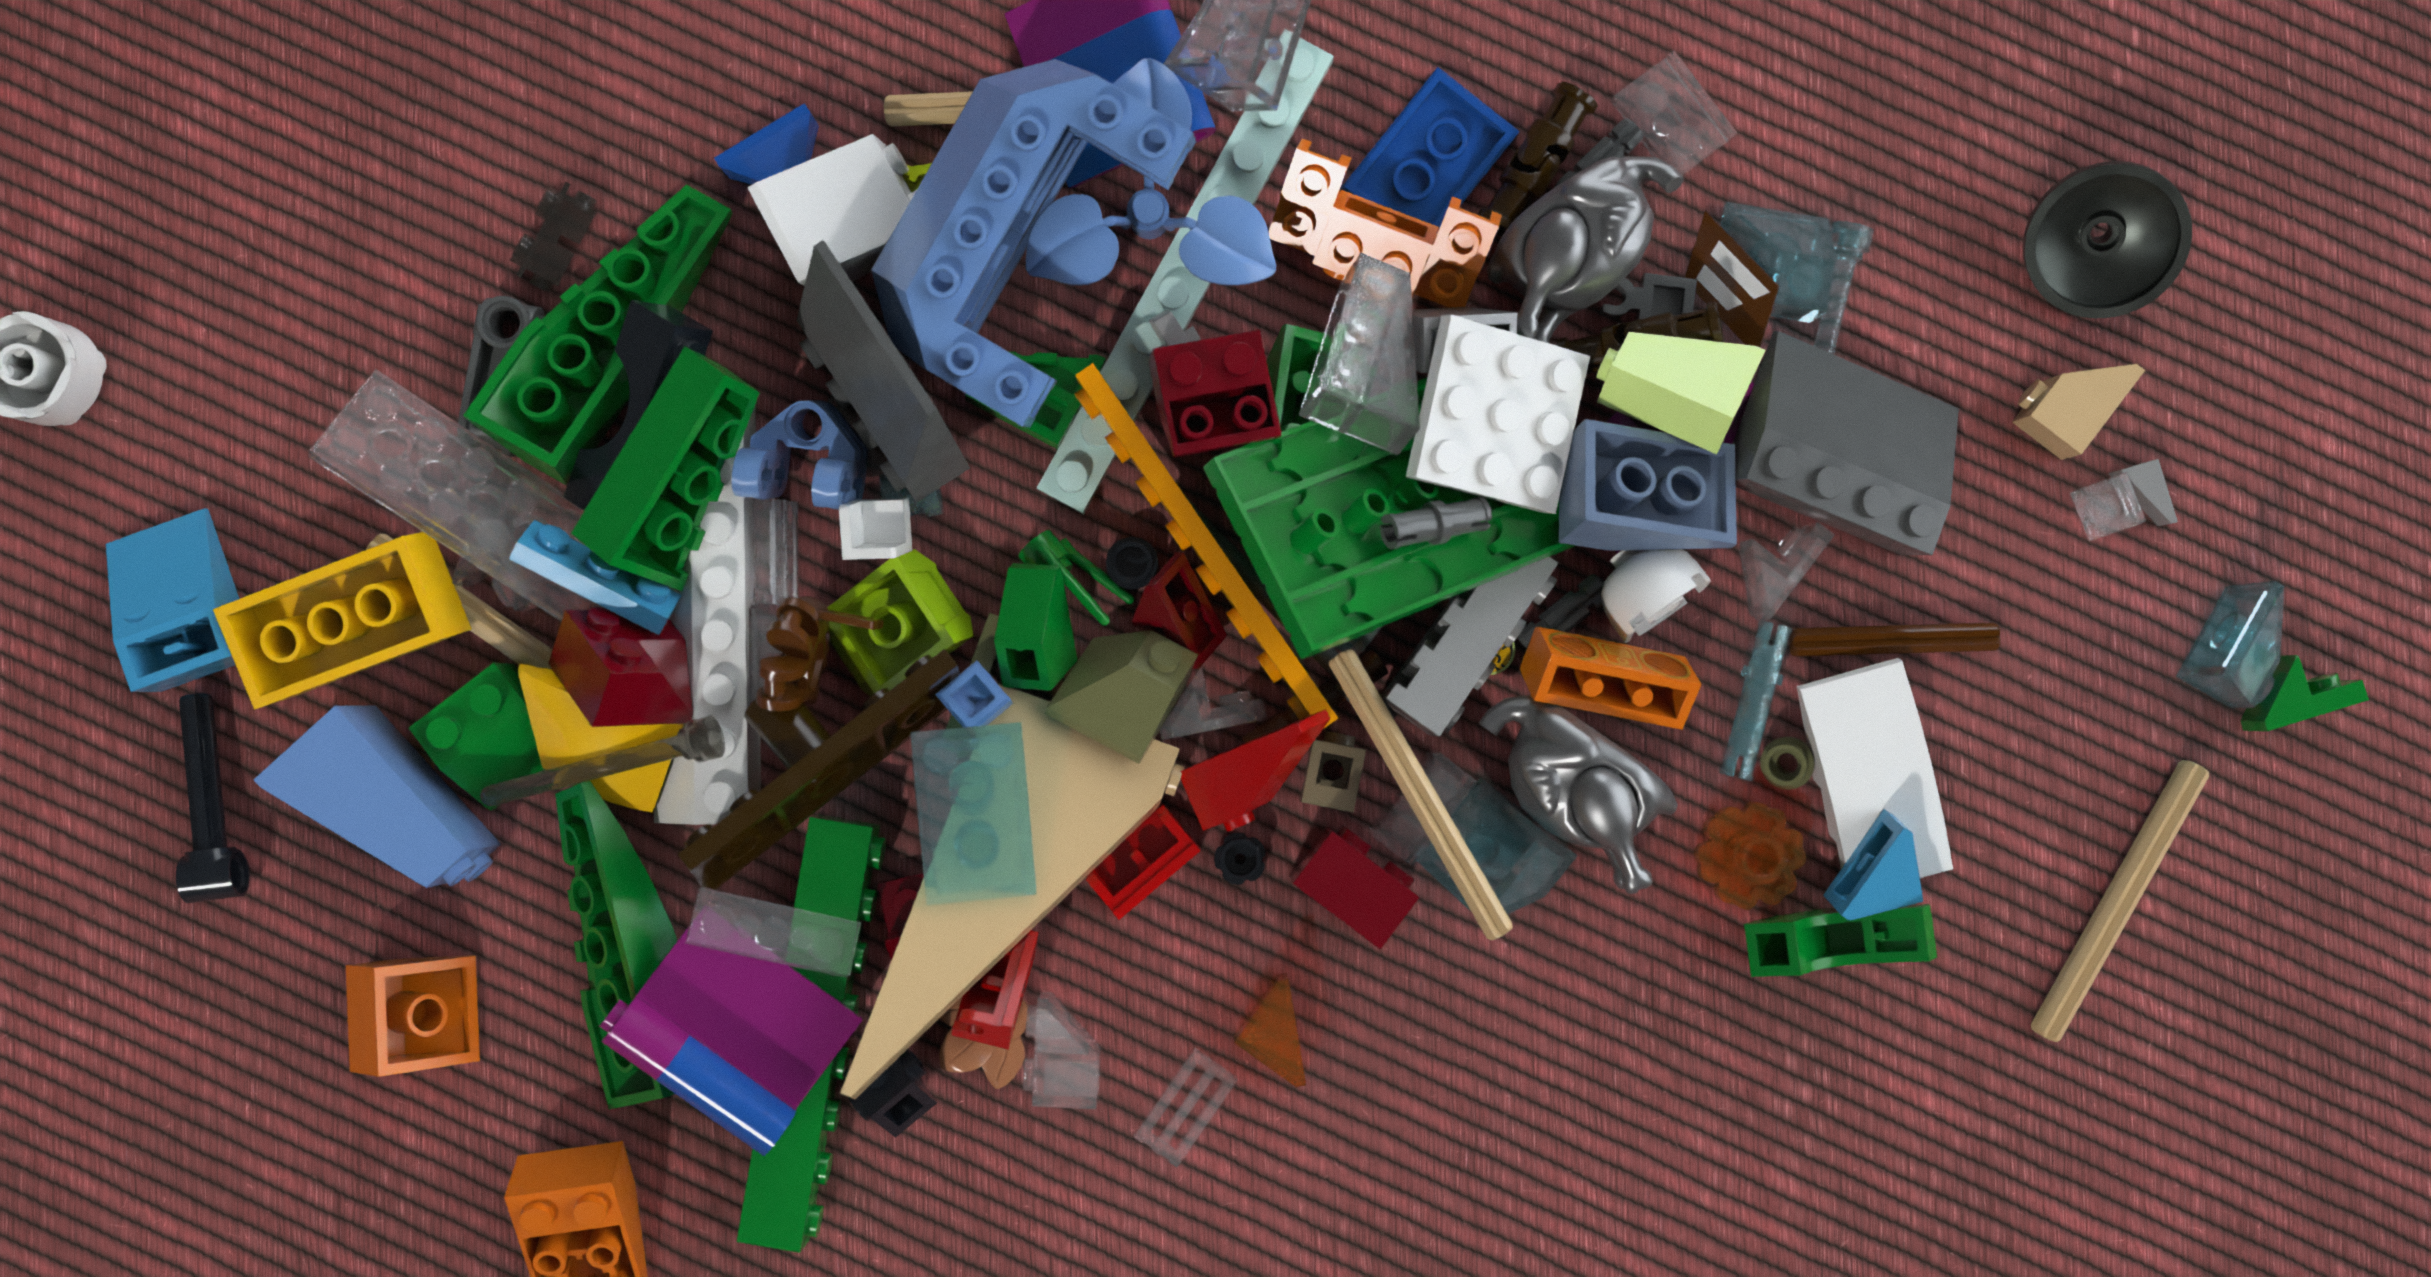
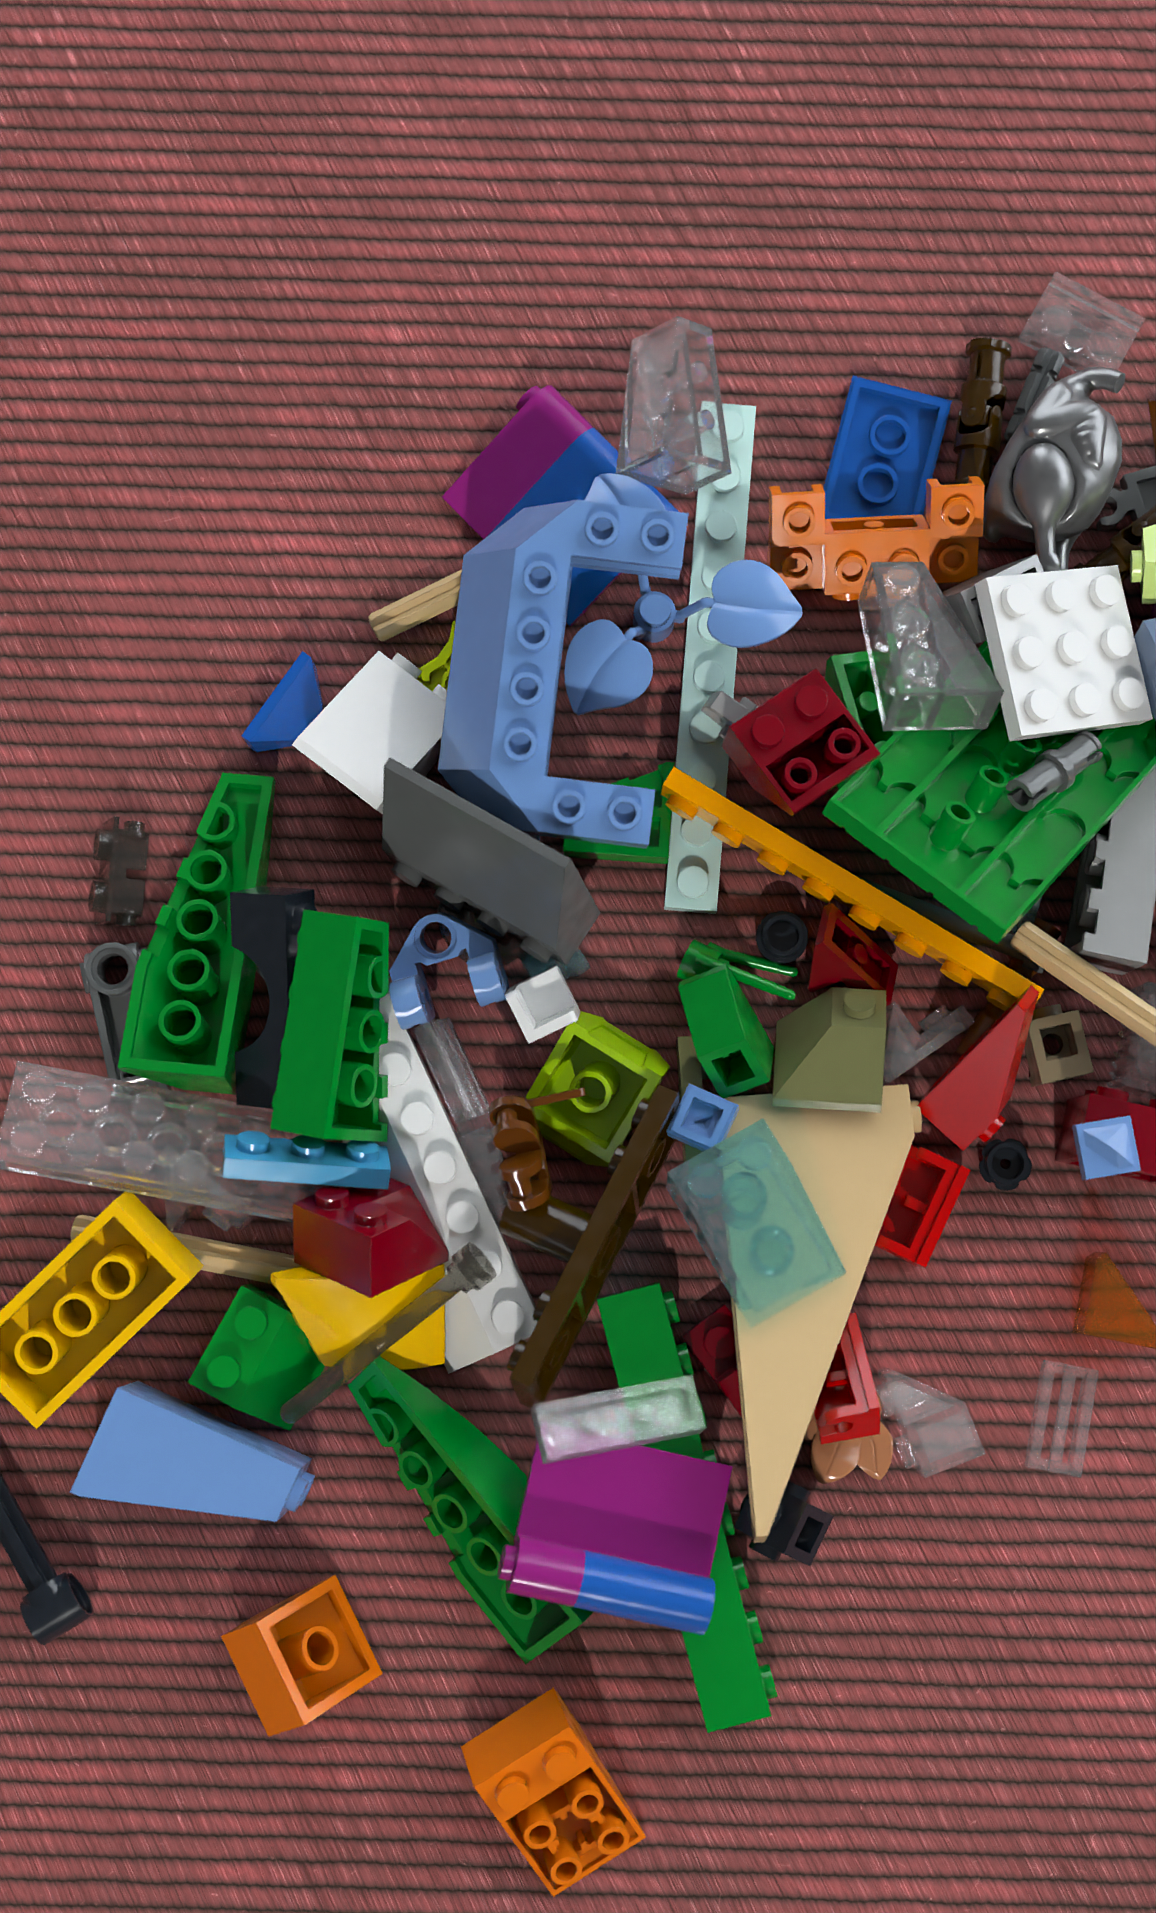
camera: 20 degrees left, 5 degrees down
(1321, 887) = (1106, 1147): none -> medium blue tile

